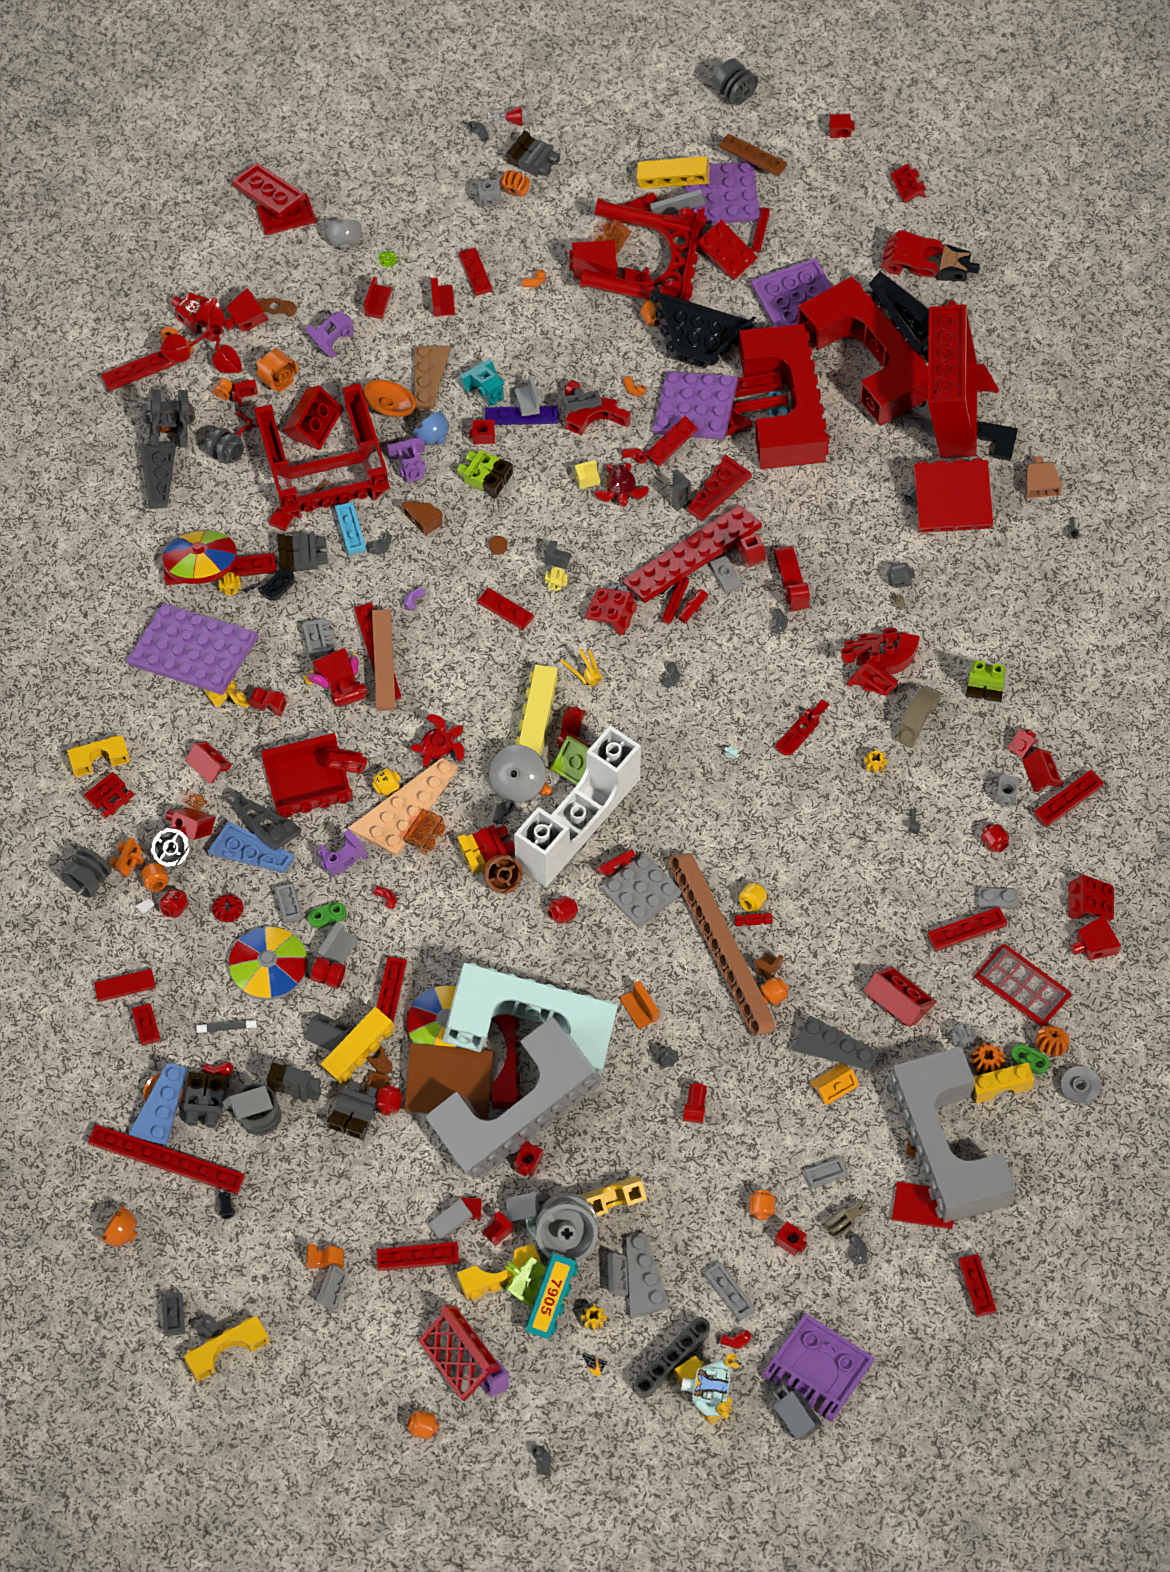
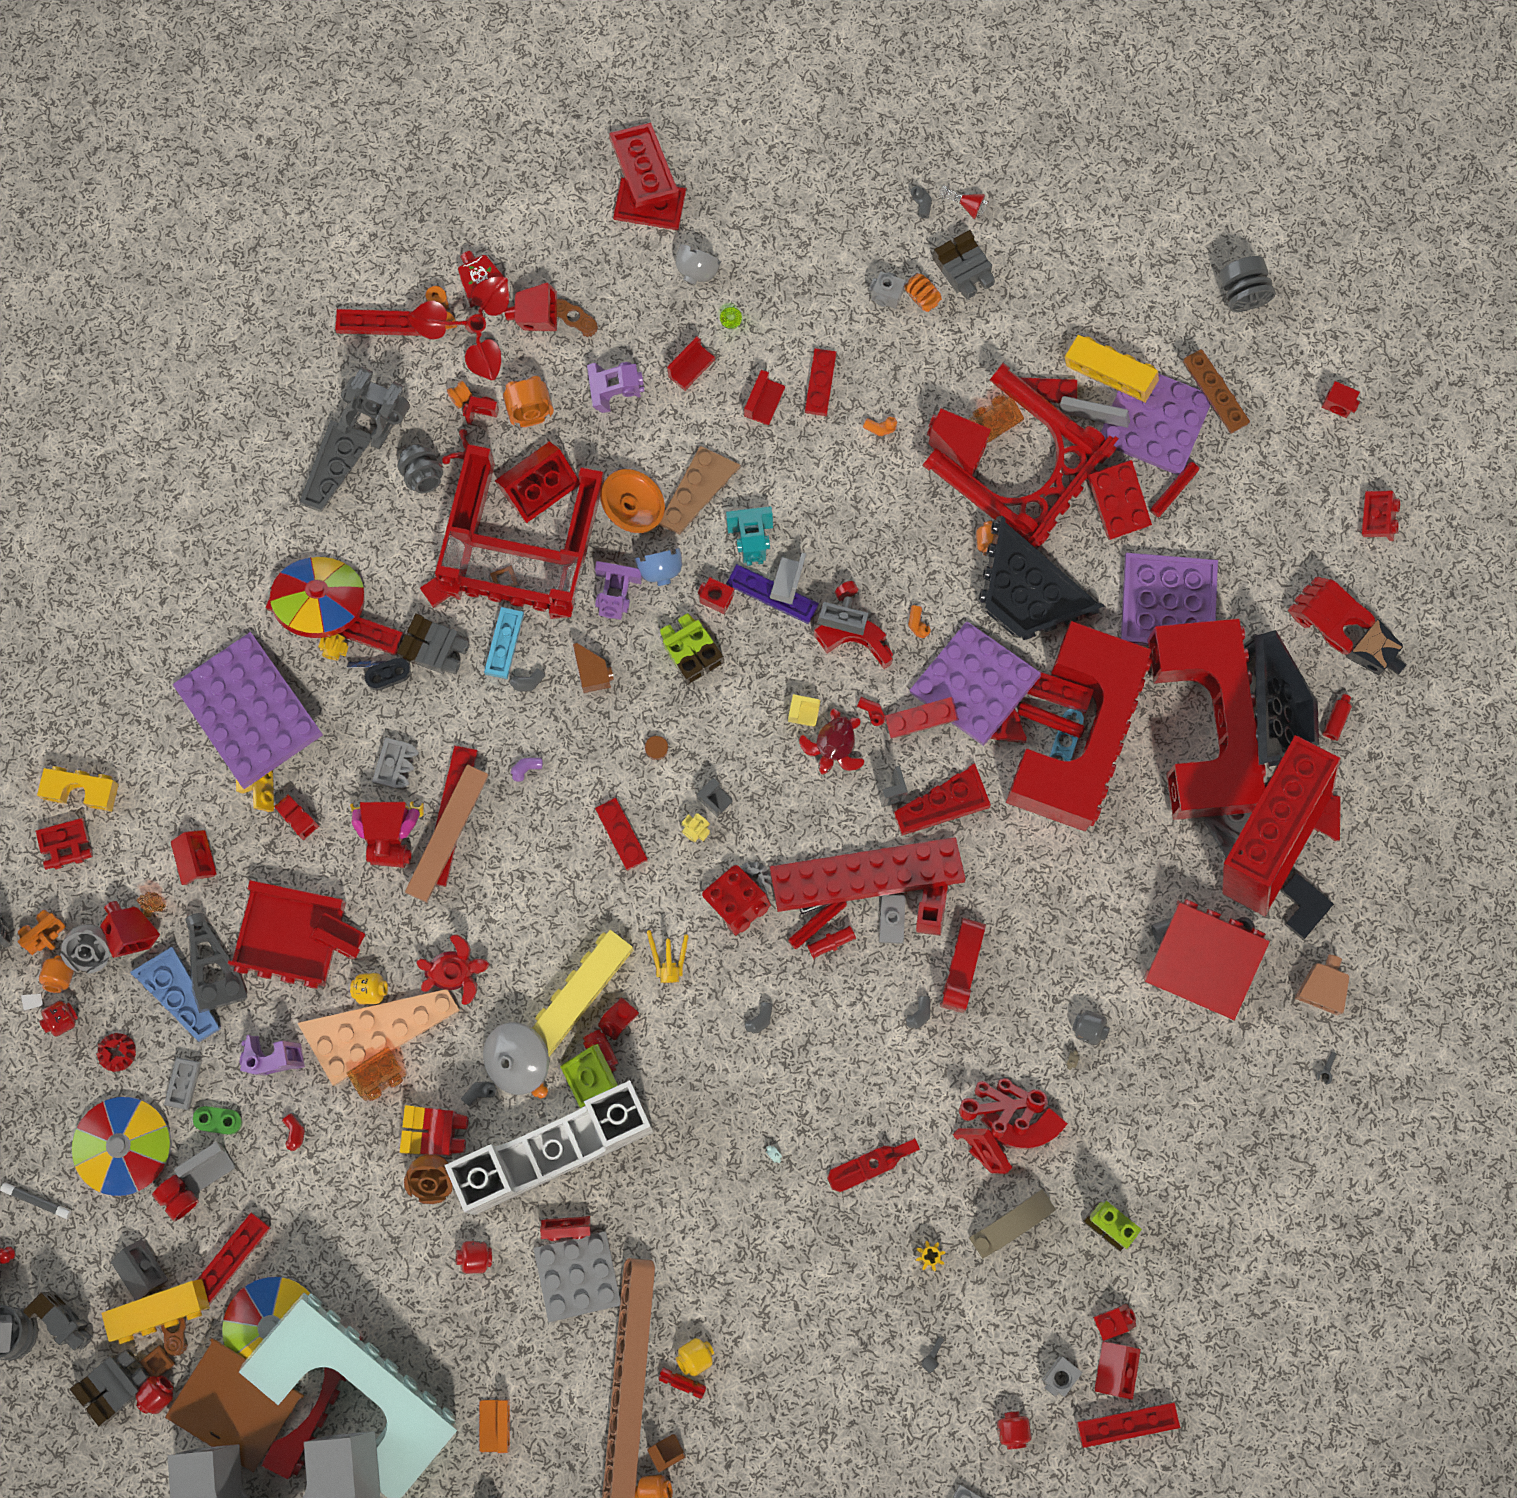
camera: 25 degrees right, 15 degrees up
(634, 275) = (997, 481): red bracket -> none

